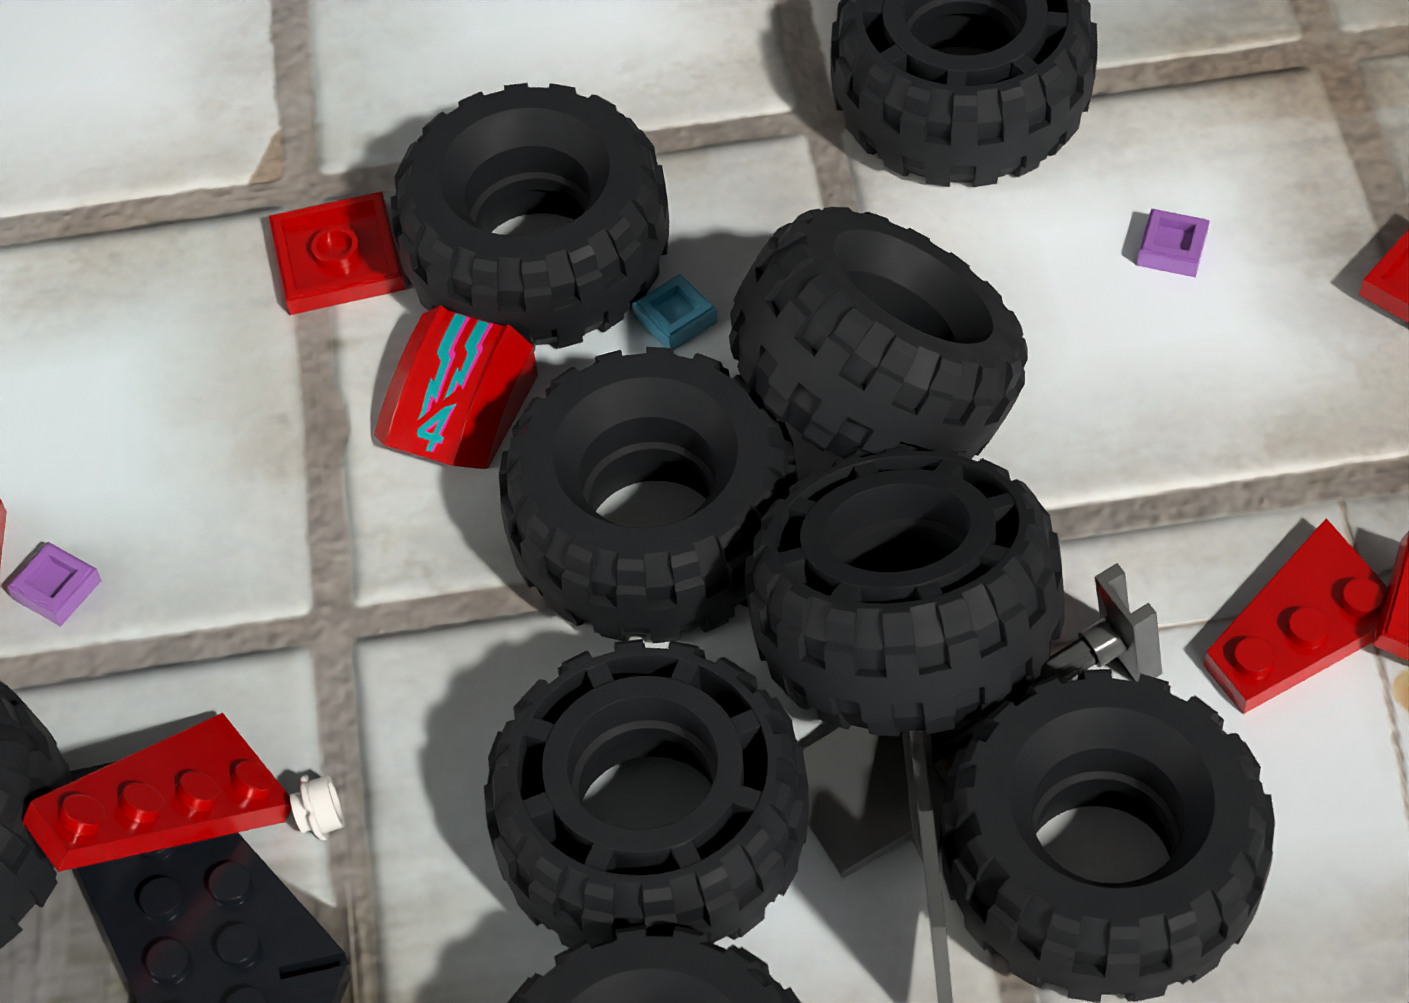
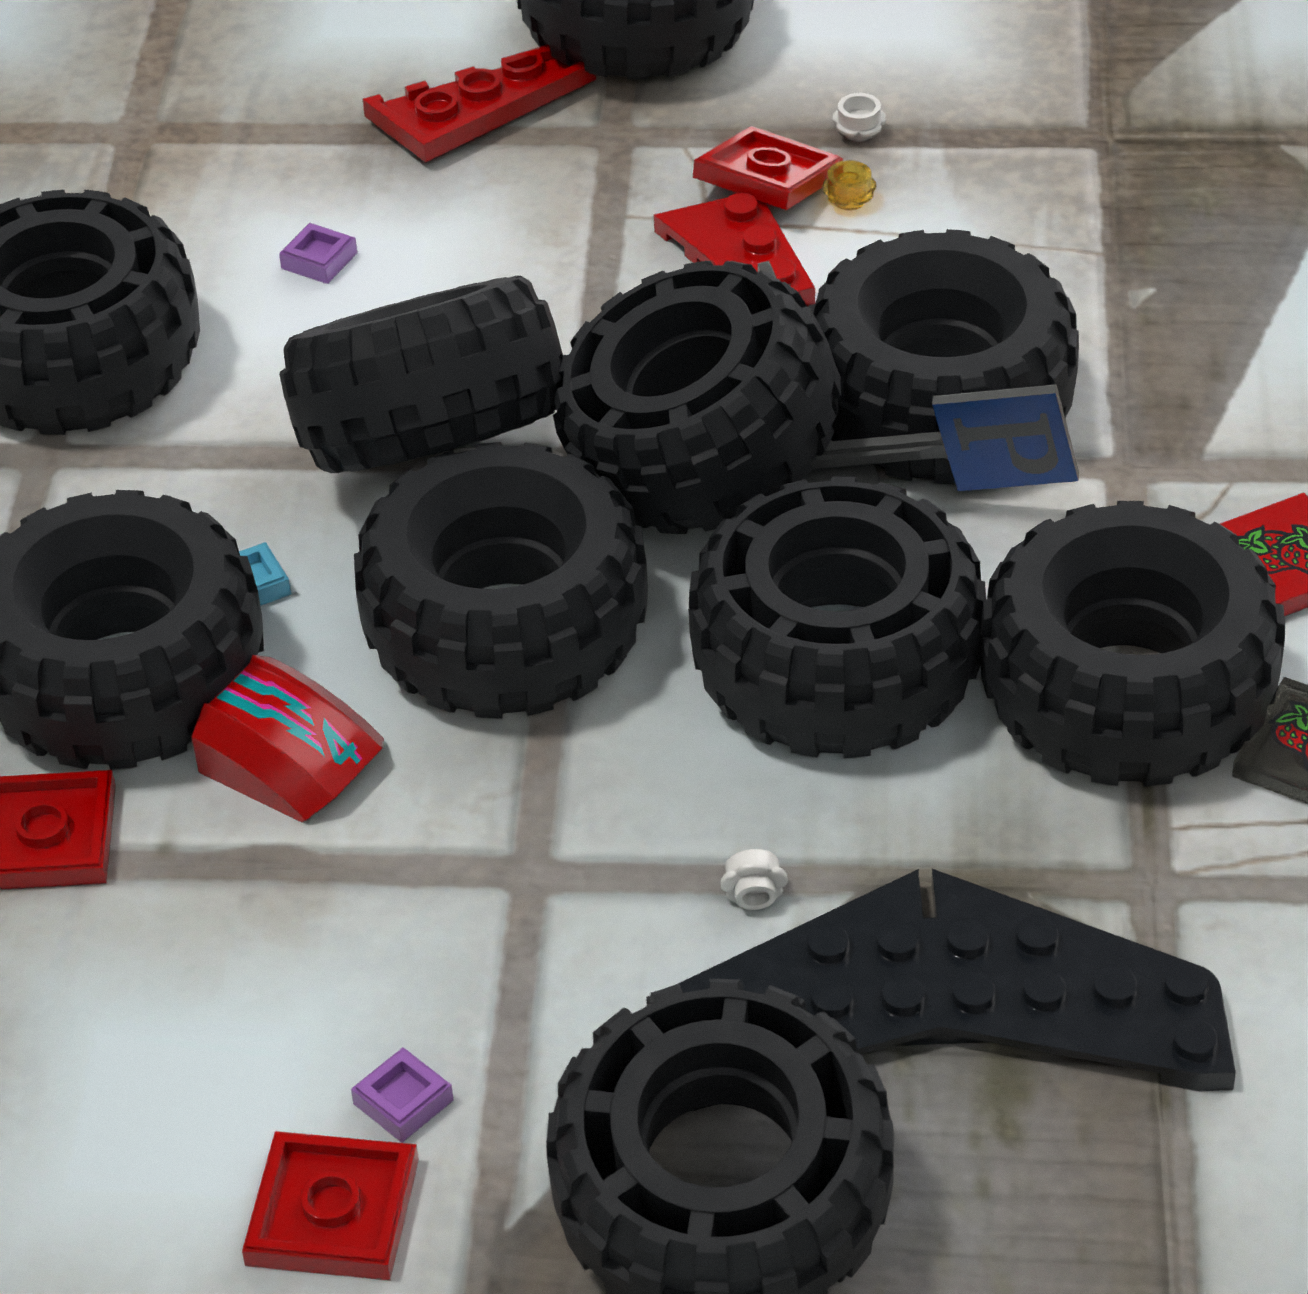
camera: 80 degrees left, 10 degrees down
(159, 798) = (745, 944): red wing -> none

